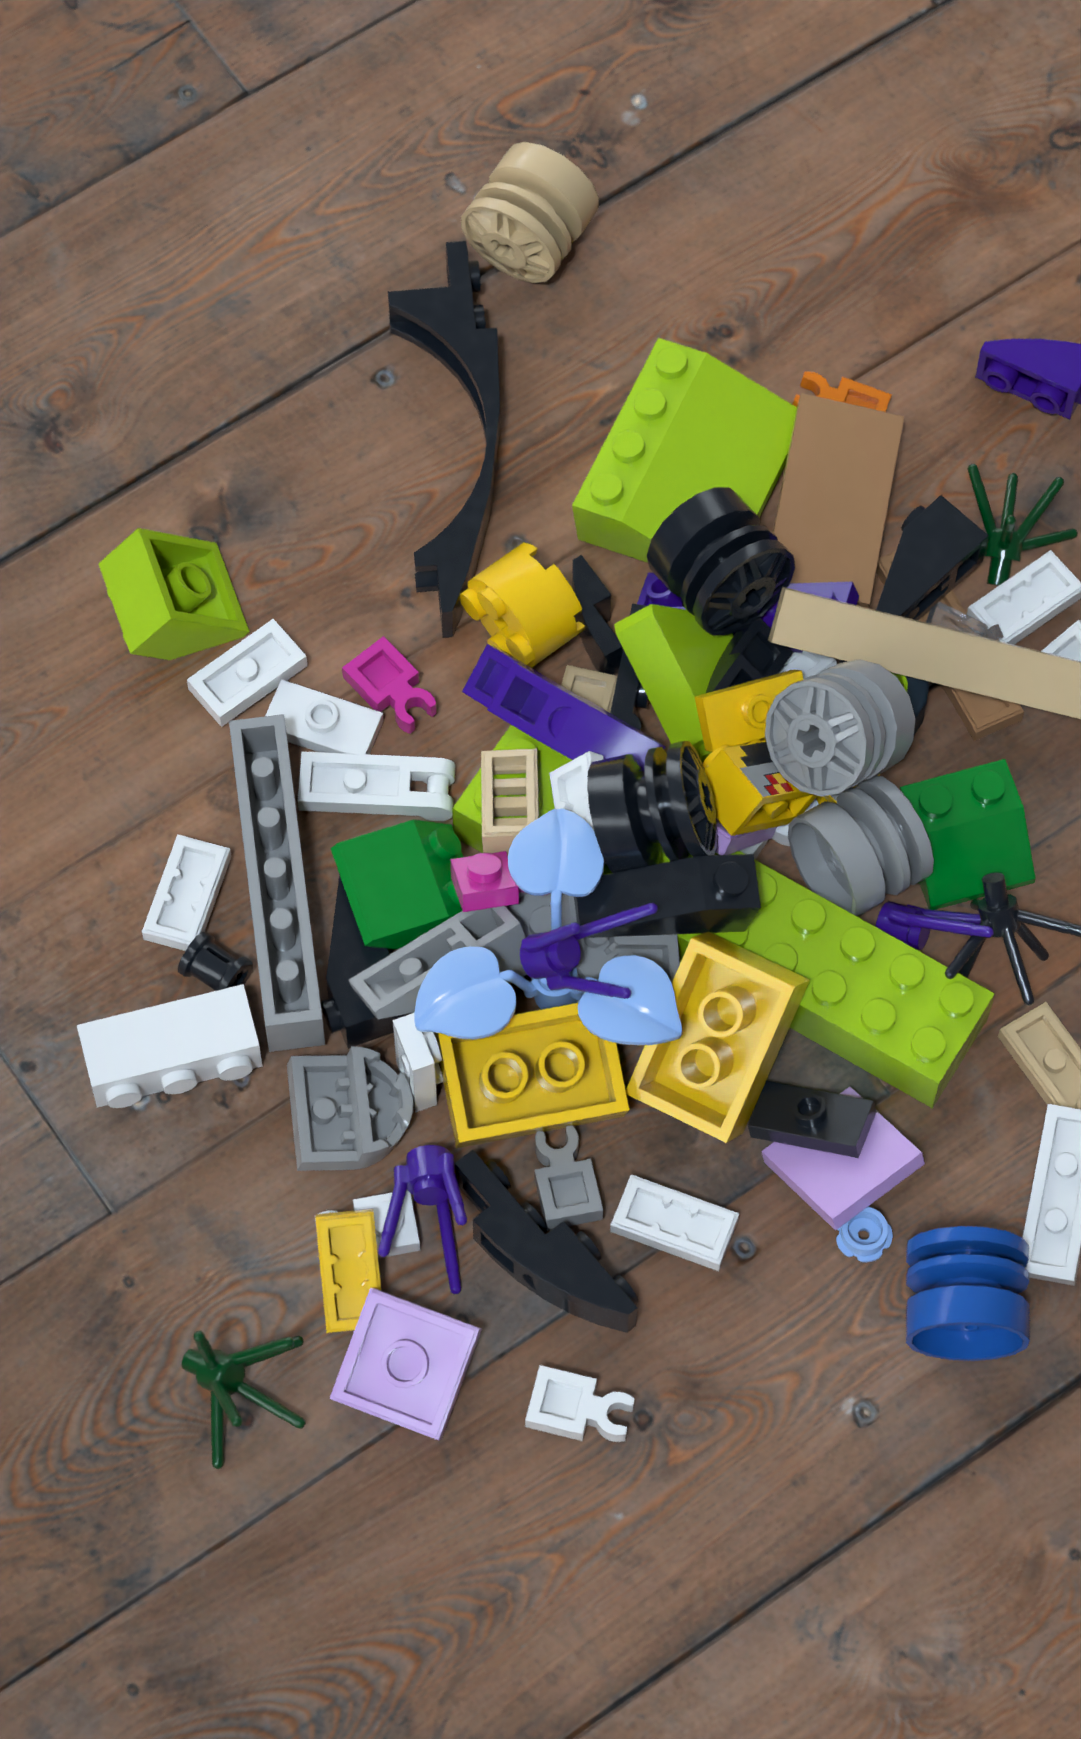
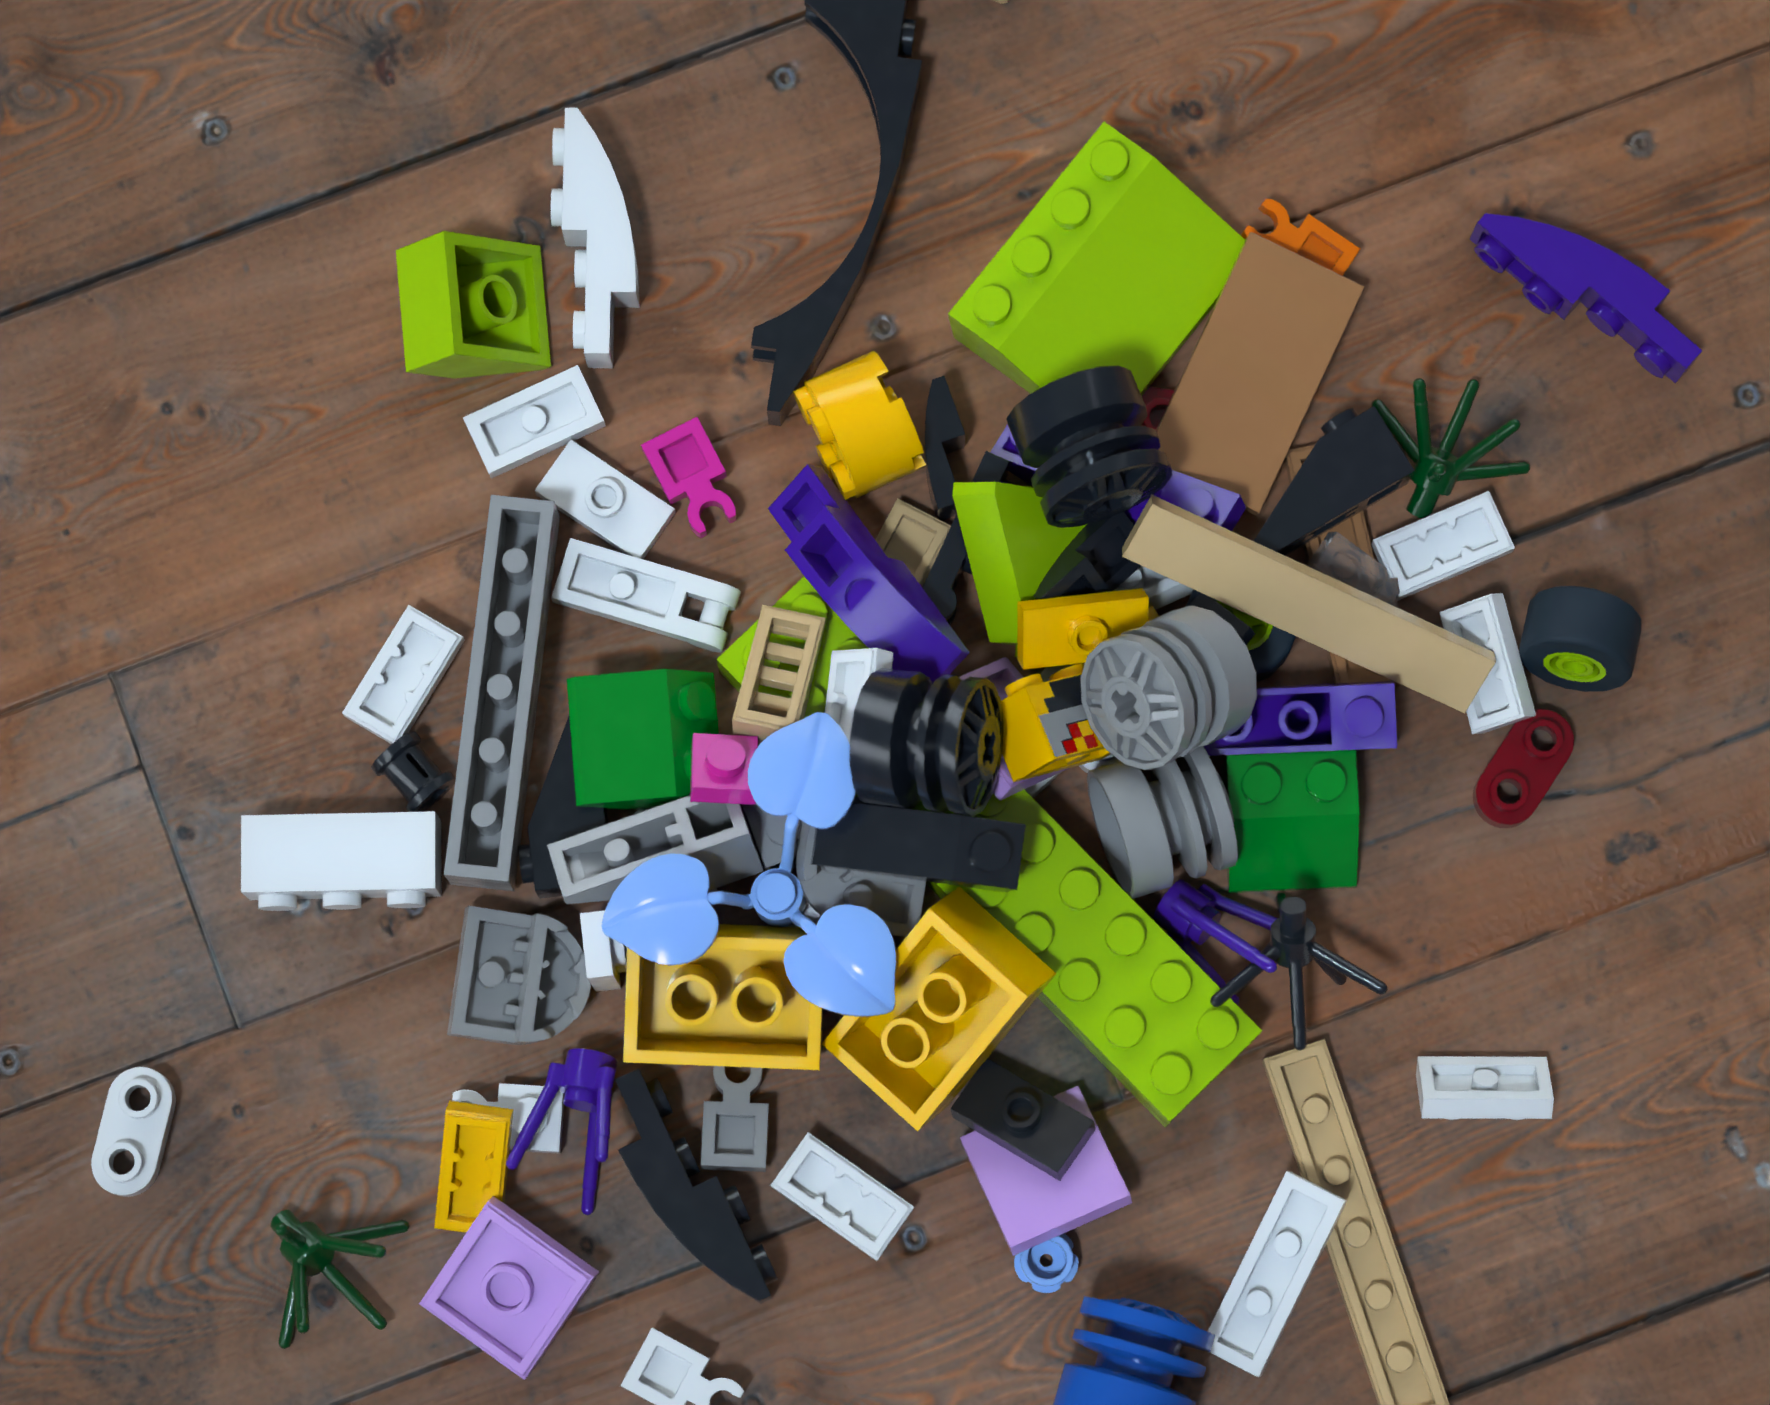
camera: 15 degrees right, 15 degrees up
(41, 1314) = (139, 1132): none -> white plate
(265, 516) = (594, 217): none -> white slope
(557, 952) = (779, 885): dark purple plant -> none
(967, 741) = (1316, 720): none -> dark purple slope

